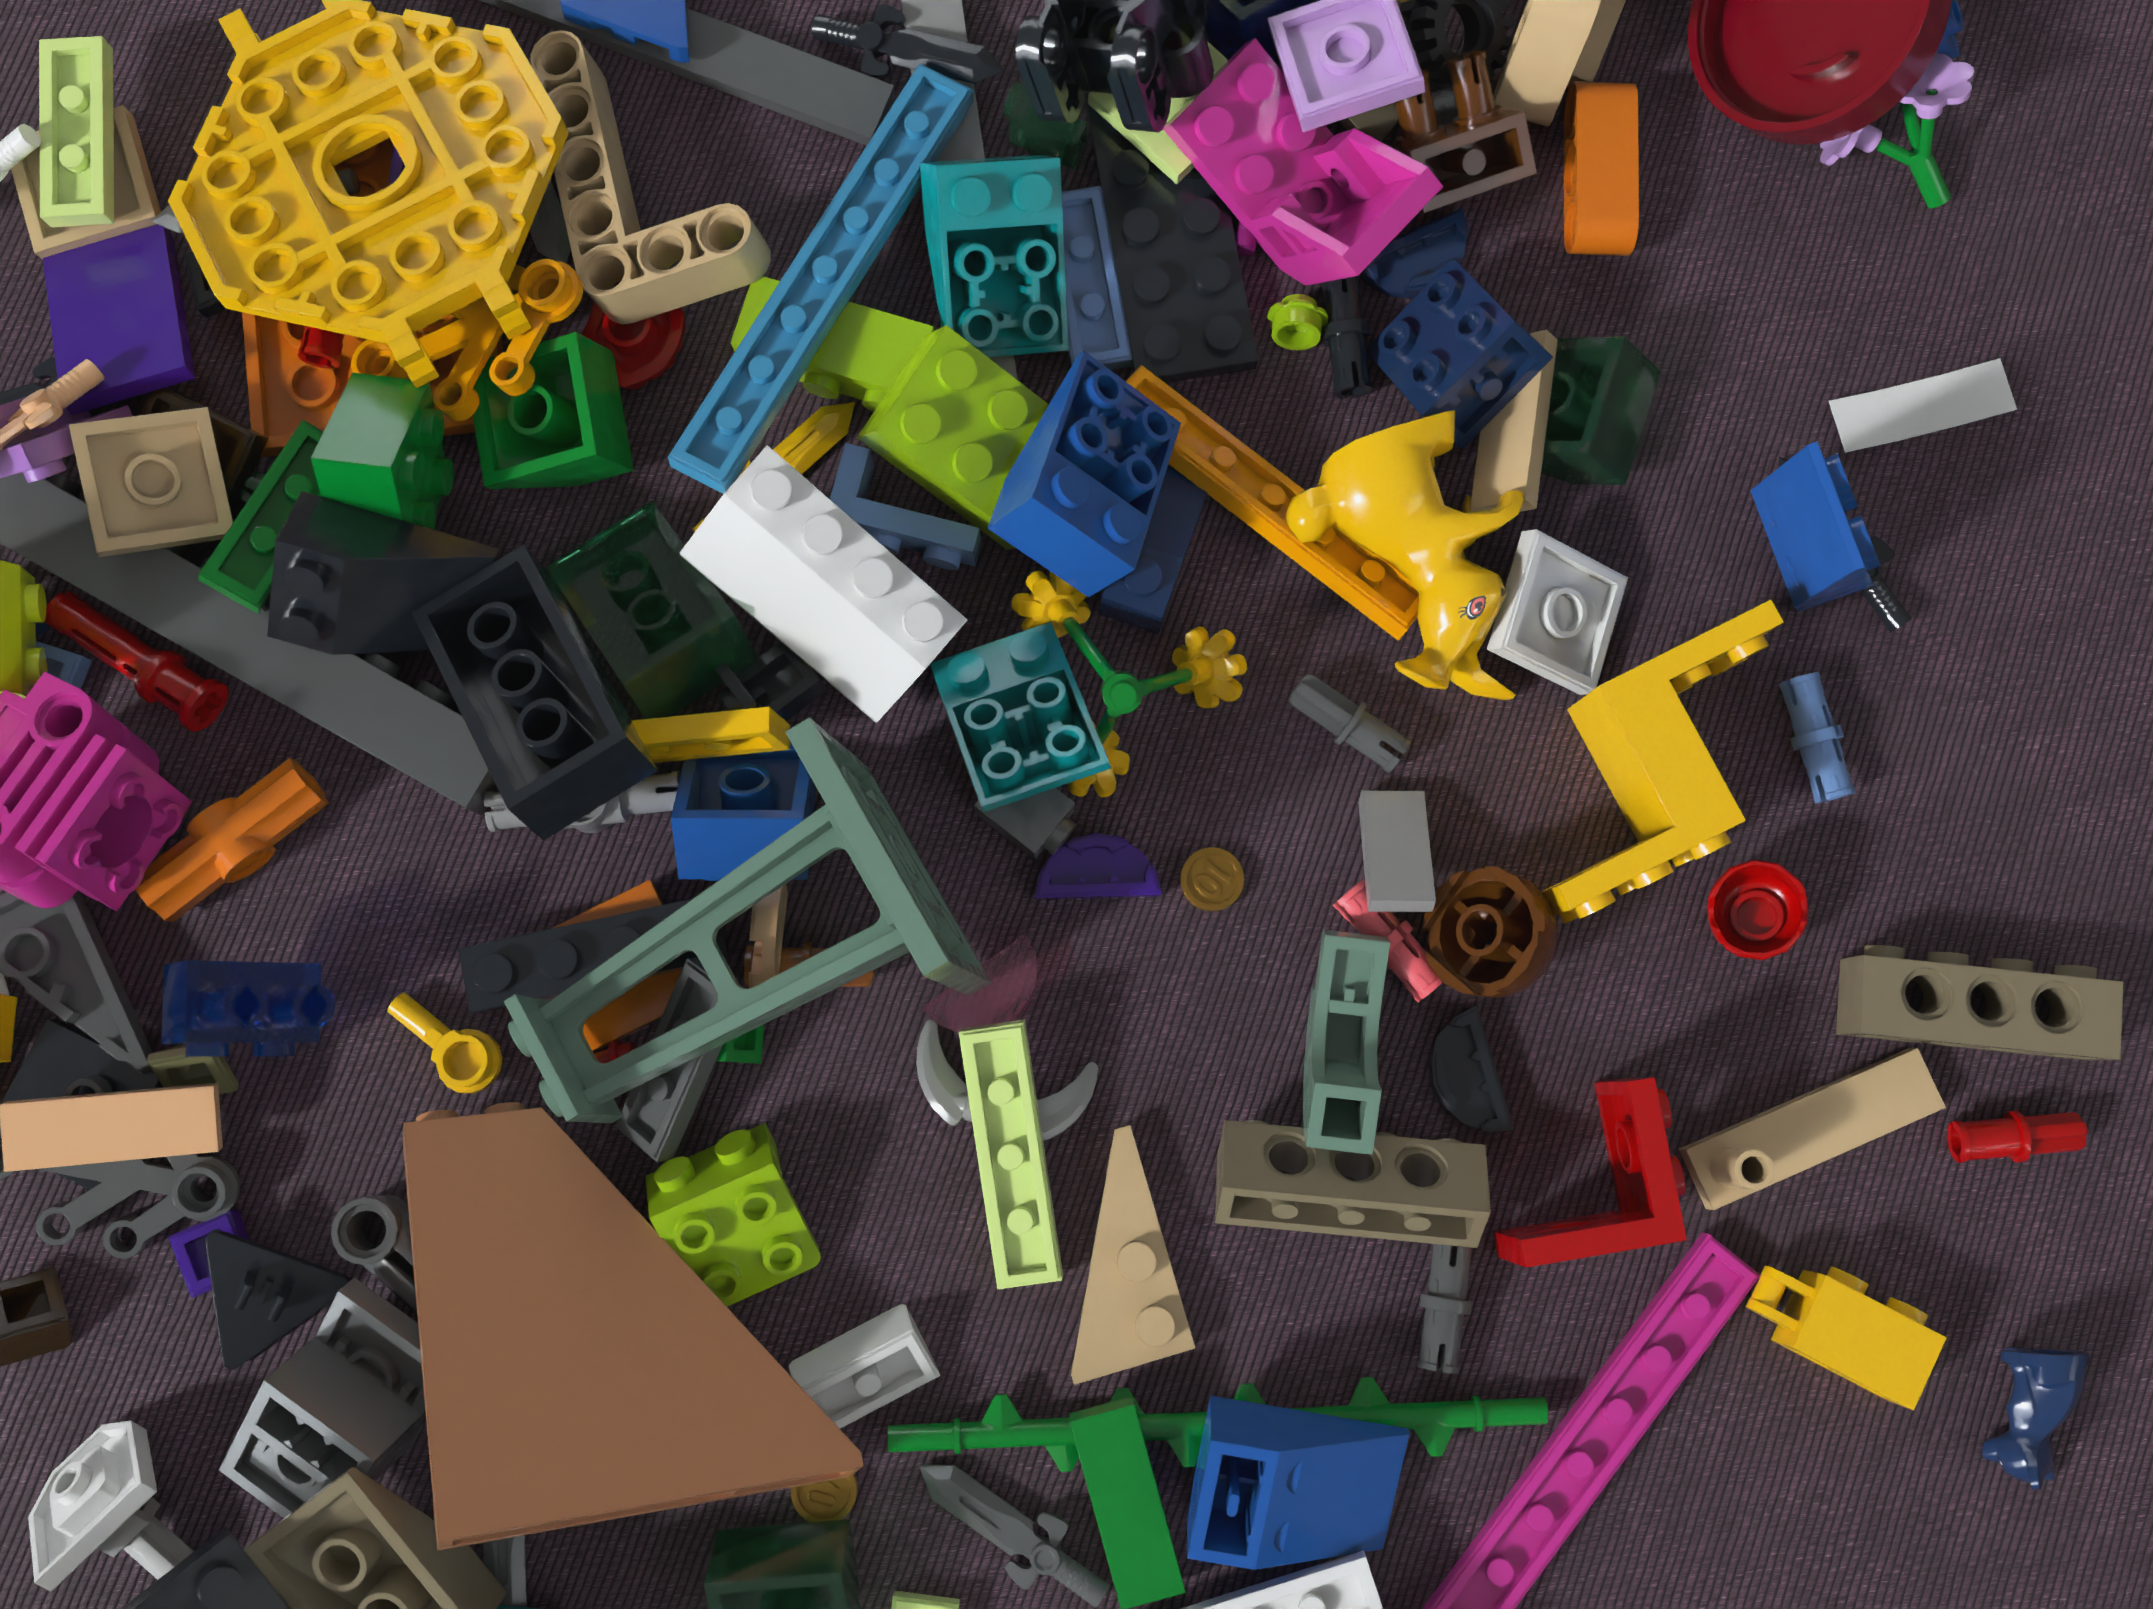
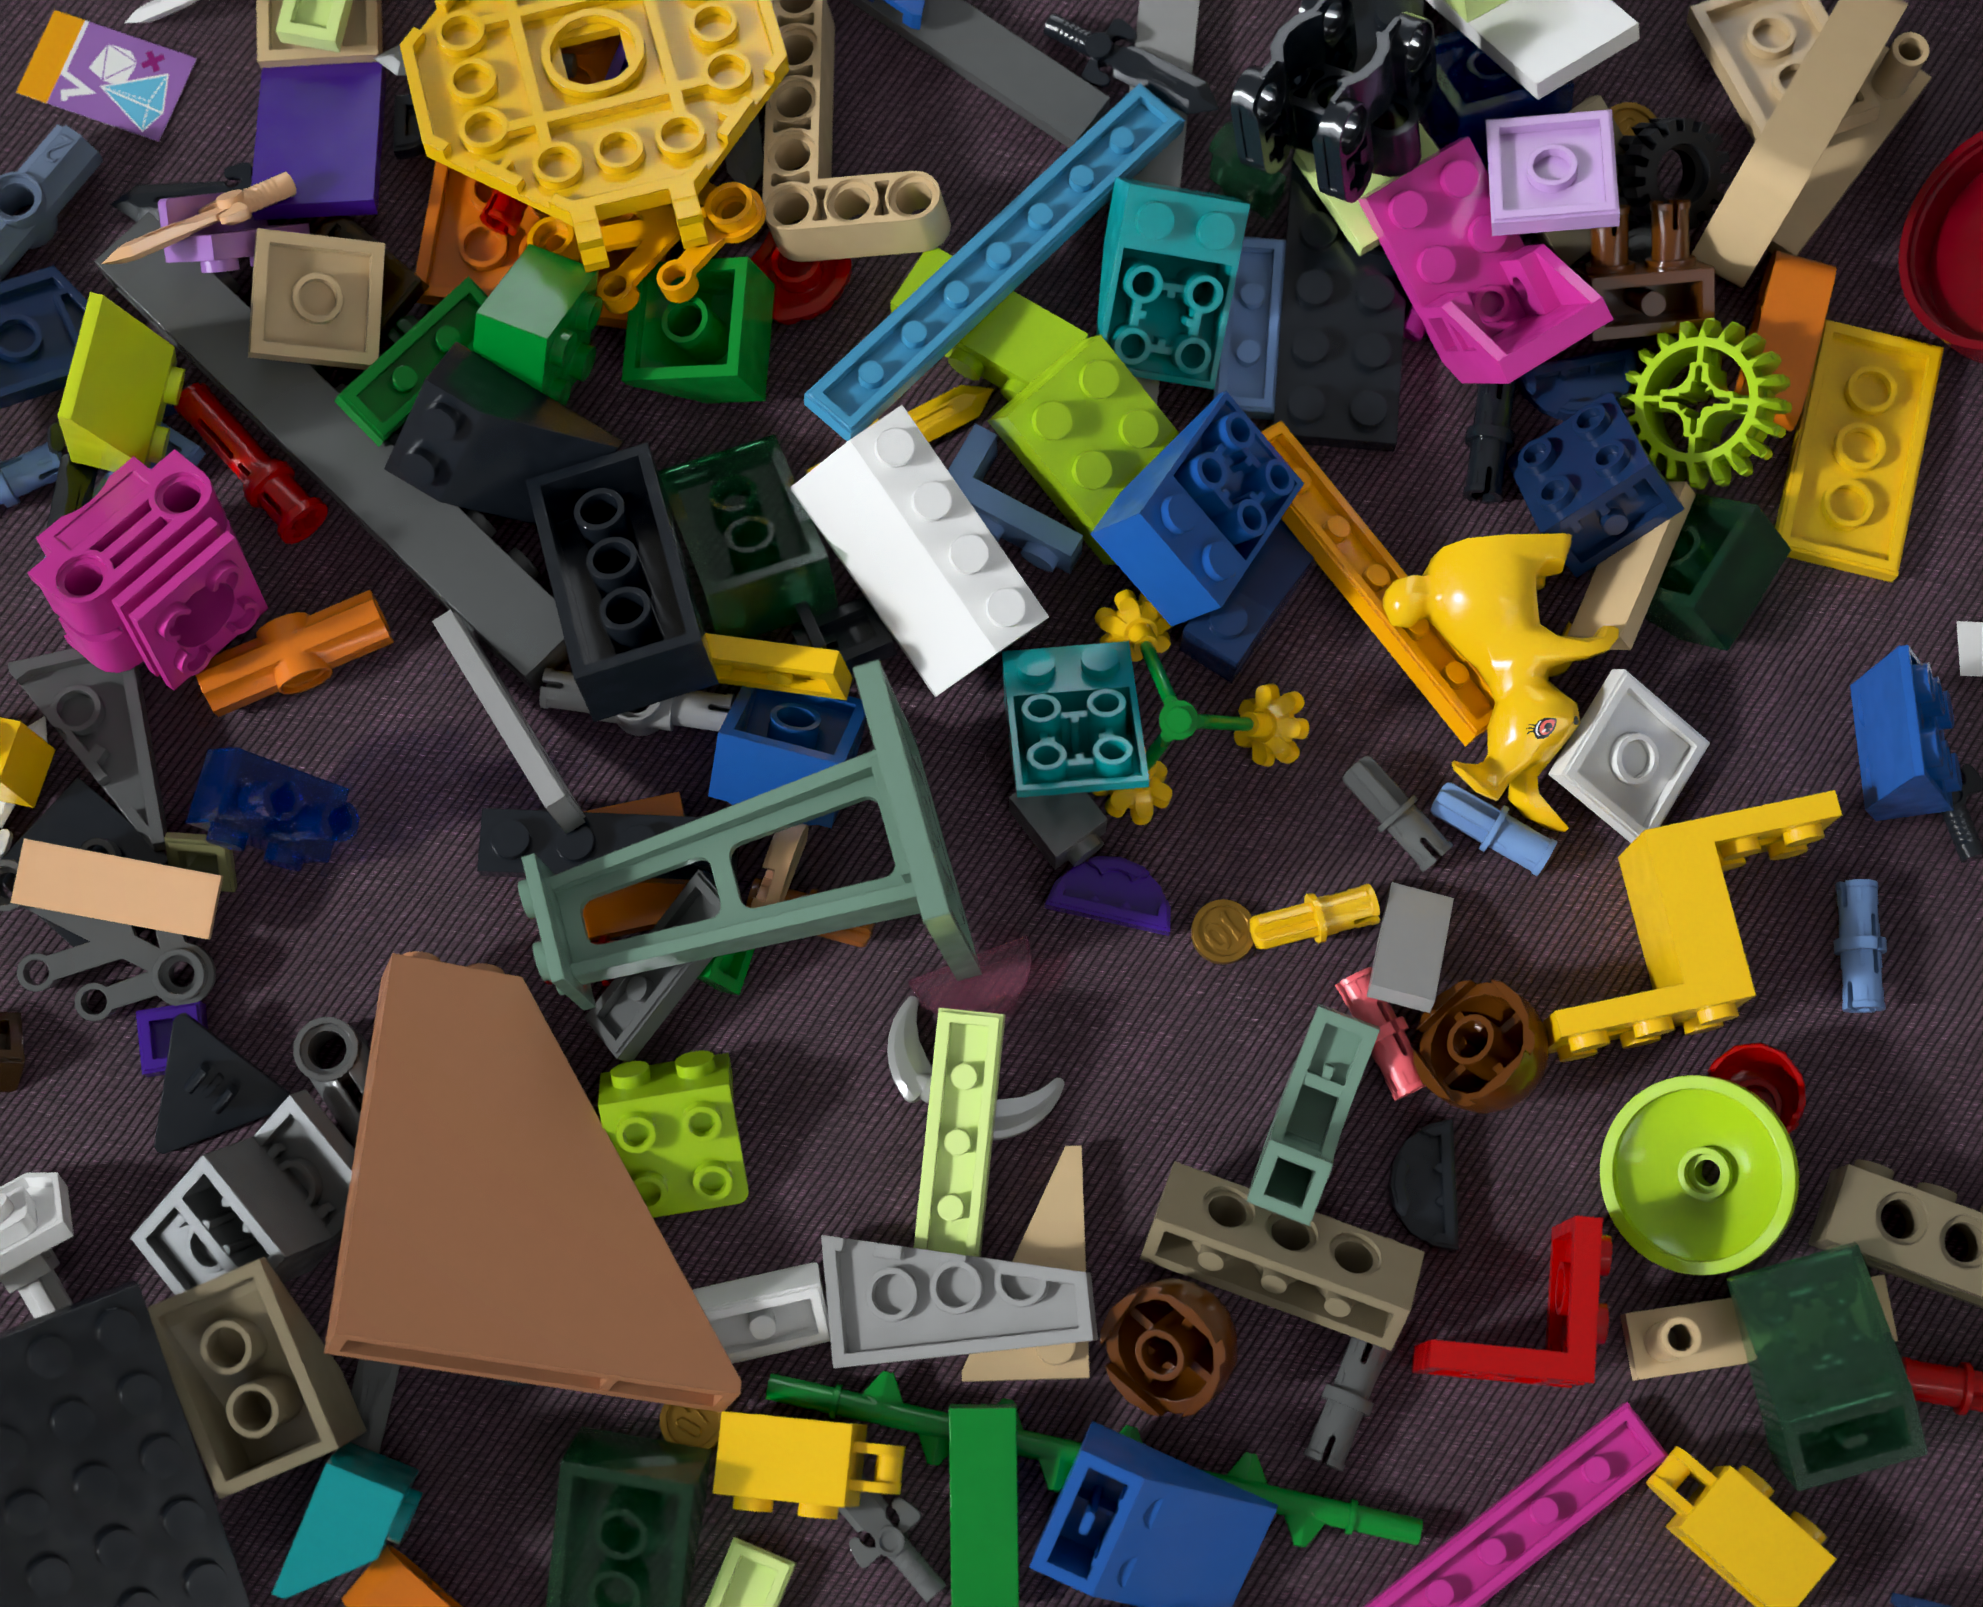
camera: 20 degrees right, 5 degrees down
(462, 857) = (510, 721): none -> light grey tile
(464, 1059) = (458, 916): yellow plate -> none
(939, 1510) = (801, 1463): none -> yellow brick
(1032, 1319) = (933, 1304): none -> light grey wing
(1267, 1303) = (1170, 1346): none -> reddish brown cylinder
(1297, 322) = (1444, 416): lime plate -> none
(1298, 844) = (1316, 918): none -> yellow axle
(1444, 713) = (1492, 827): none -> medium blue axle
(1601, 239) = (1707, 379): none -> lime gear
(1698, 259) = (1858, 450): none -> yellow tile
(1718, 1043) = (1657, 1183): none -> lime dish
(1893, 1159) = (1825, 1368): none -> clear green slope

